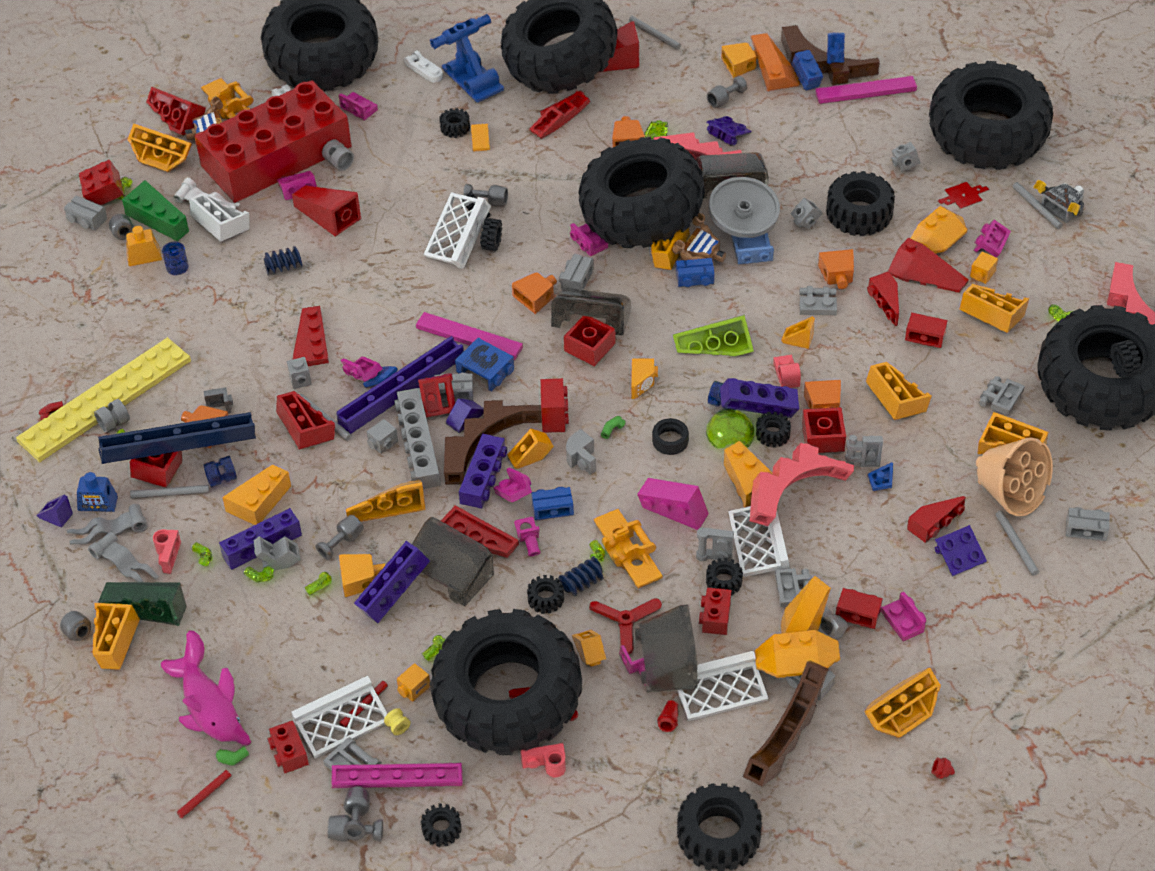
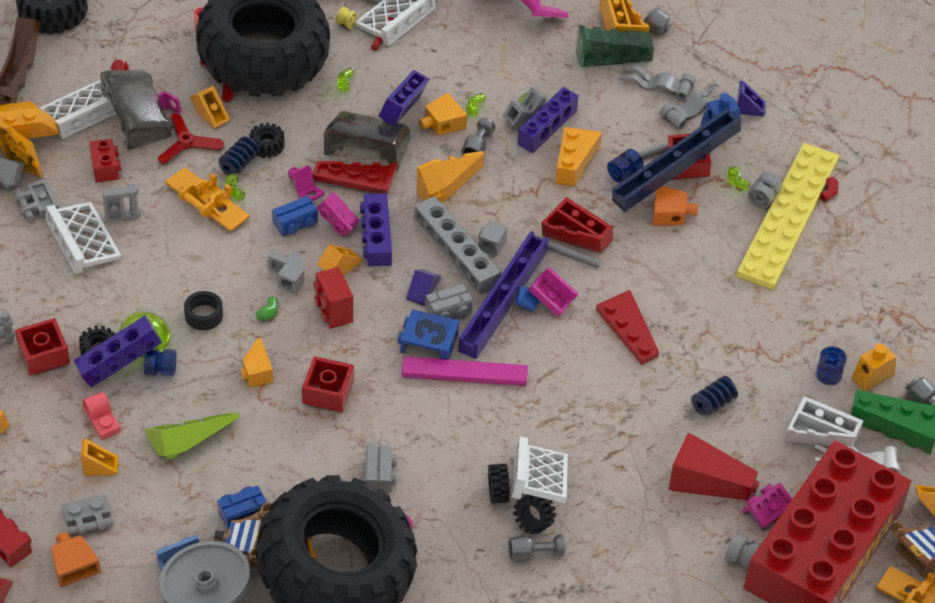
camera: 155 degrees right, 0 degrees up
(167, 546) = (628, 98): coral plate -> none
(204, 552) = (591, 104): clear neon green arm -> none
(218, 398) = (675, 235): flat silver bracket -> none
(299, 372) = (613, 276): light grey brick -> none
(413, 682) = (348, 46): light orange brick -> none
(431, 394) = (457, 279): red plate -> none
(496, 419) = (391, 280): reddish brown arch -> none
(534, 291) = (417, 435): orange torso -> none
(611, 306) = (340, 414): clear smoke windscreen -> none
(675, 501) = (177, 239): dark pink wedge -> none
(724, 567) = (100, 184): black tyre -> none
(743, 469) = (110, 287): light orange wedge -> none
(804, 464) = (67, 272): coral arch -> none
(822, 394) = (52, 390): orange torso -> none

